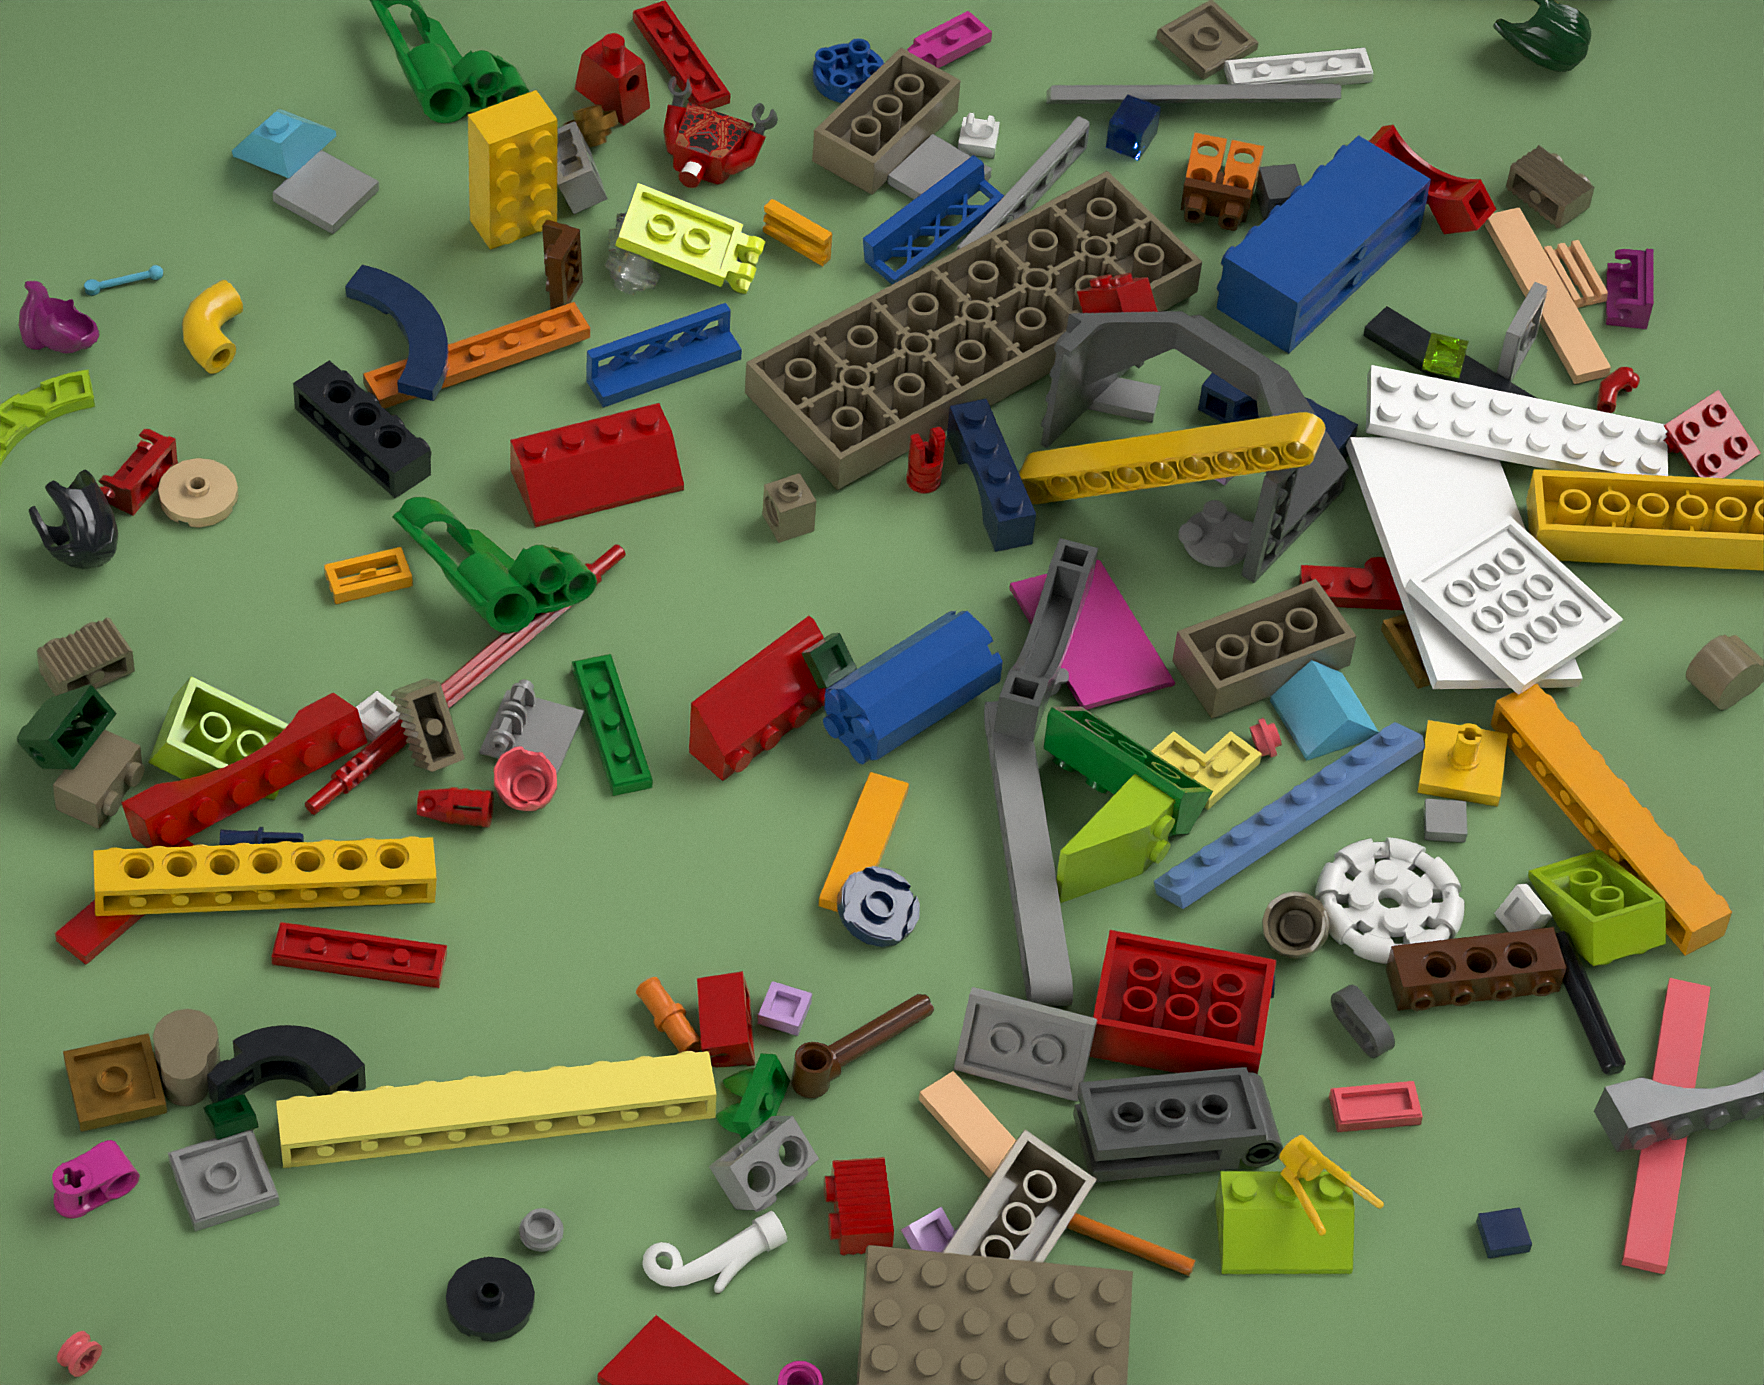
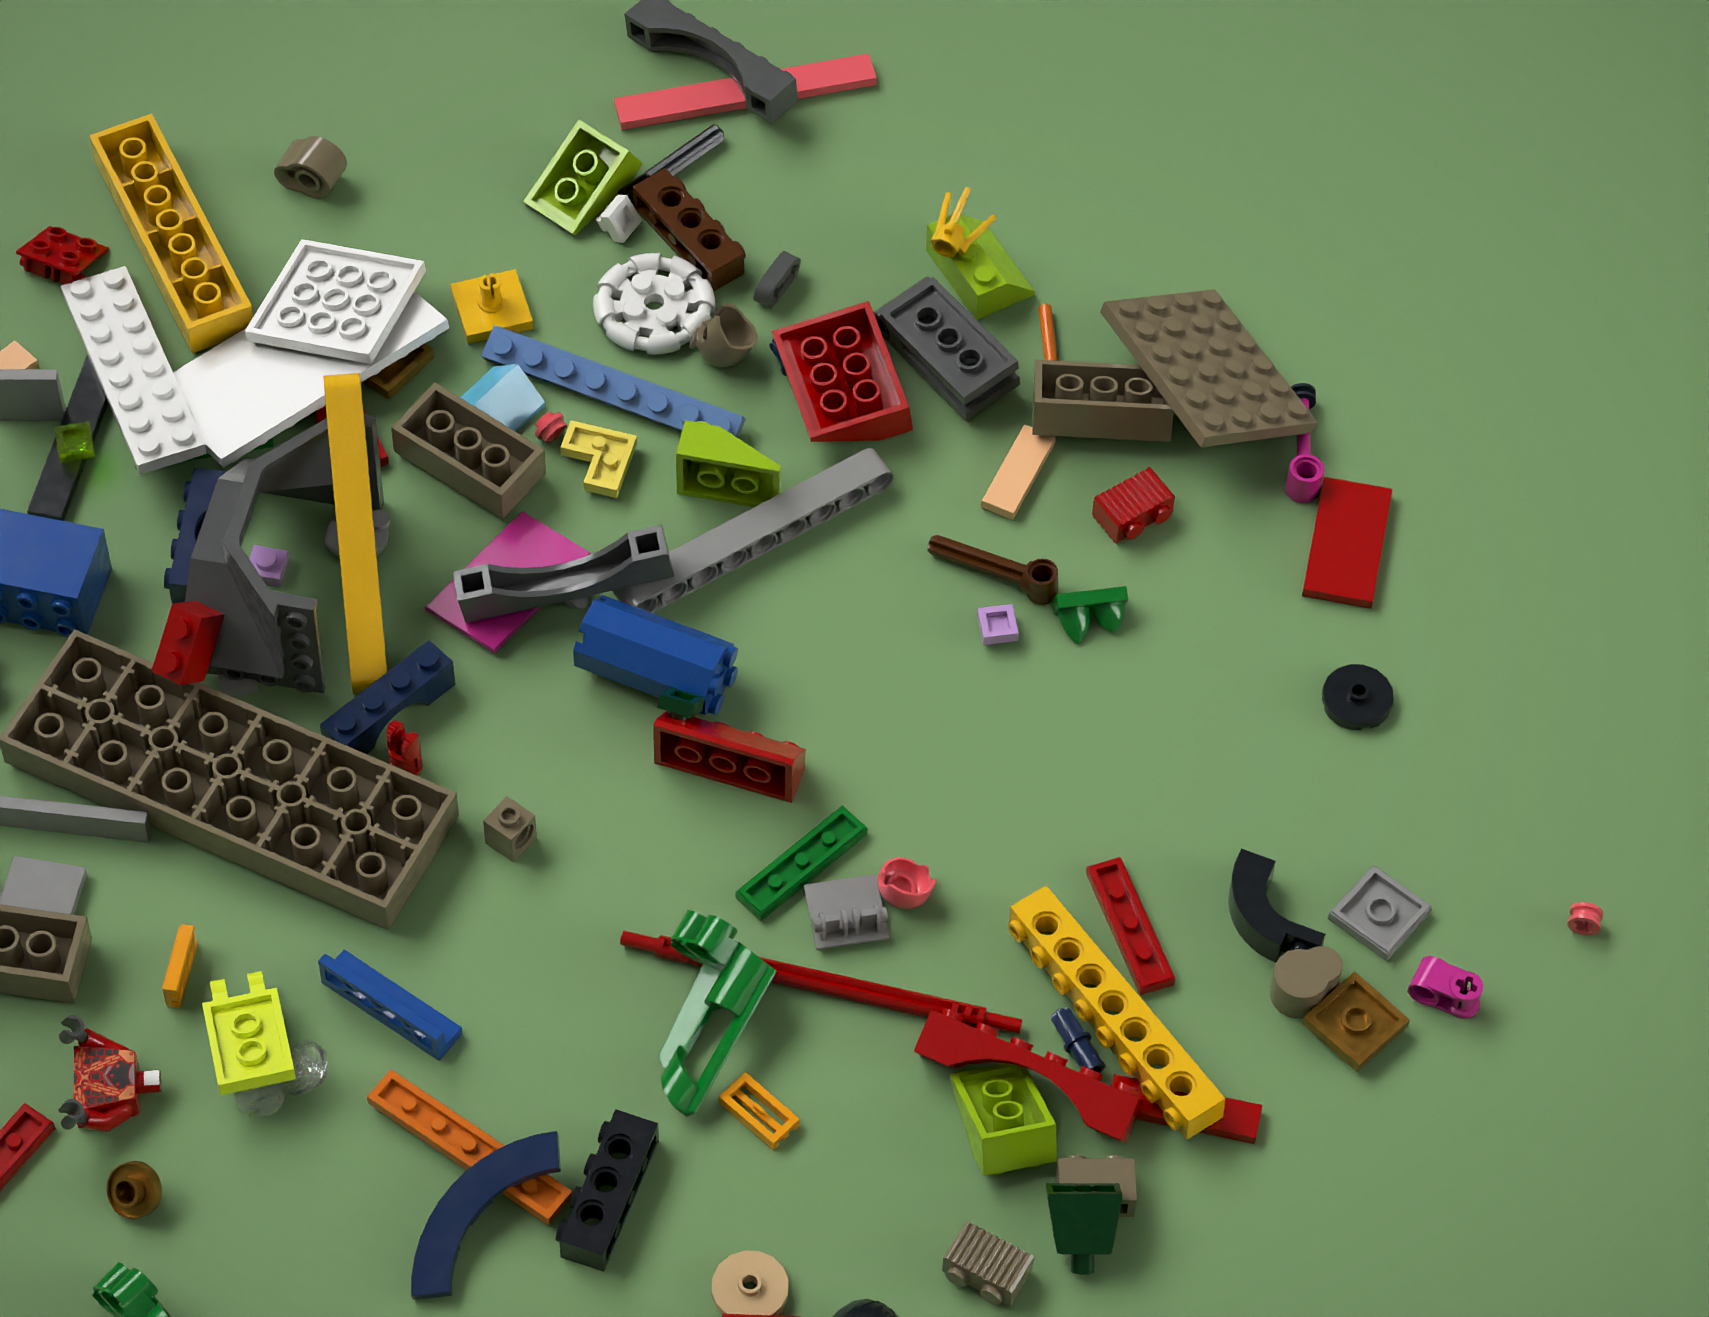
camera: 115 degrees left, 5 degrees up
(230, 1116) = (1335, 926): dark green tile -> none
(377, 714) = (900, 1029): white tile -> none
(428, 724) = (908, 962): dark tan brick -> none
(444, 803) = (954, 922): red hinge -> none
(496, 1109) = (1210, 762): light yellow brick -> none
(512, 169) = (271, 1175): yellow brick -> none
(541, 1230) = (1283, 690): light grey plate -> none
(562, 262) = (338, 1111): reddish brown bracket -> none
(577, 170) = (204, 1169): light grey brick -> none
(596, 465) = (542, 994): red slope -> none
(614, 78) = (67, 1190): red torso -> none
(668, 1015) = (1053, 692): orange pin -> none
(726, 1019) = (1033, 652): red hinge -> none
(727, 1258) = (1229, 572): white plant -> none
(761, 1155) = (1145, 570): light grey brick -> none
(866, 833) = (810, 643): light orange tile -> none
(878, 906) = (868, 604): tile -> none
(924, 212) = (114, 871): blue fence -> none
(929, 1232) = (1130, 455): lavender plate -> none
(1024, 1043) = (938, 455): light grey plate -> none
(1111, 758) = (646, 478): green slope -> none
(1375, 1106) = (840, 254): coral tile -> none
(1445, 820) = (555, 298): light grey tile -> none
(1504, 1232) = (897, 150): dark blue tile -> none
(1610, 814) = (494, 197): light orange brick -> none
(1622, 378) = (33, 336): red arm -> none

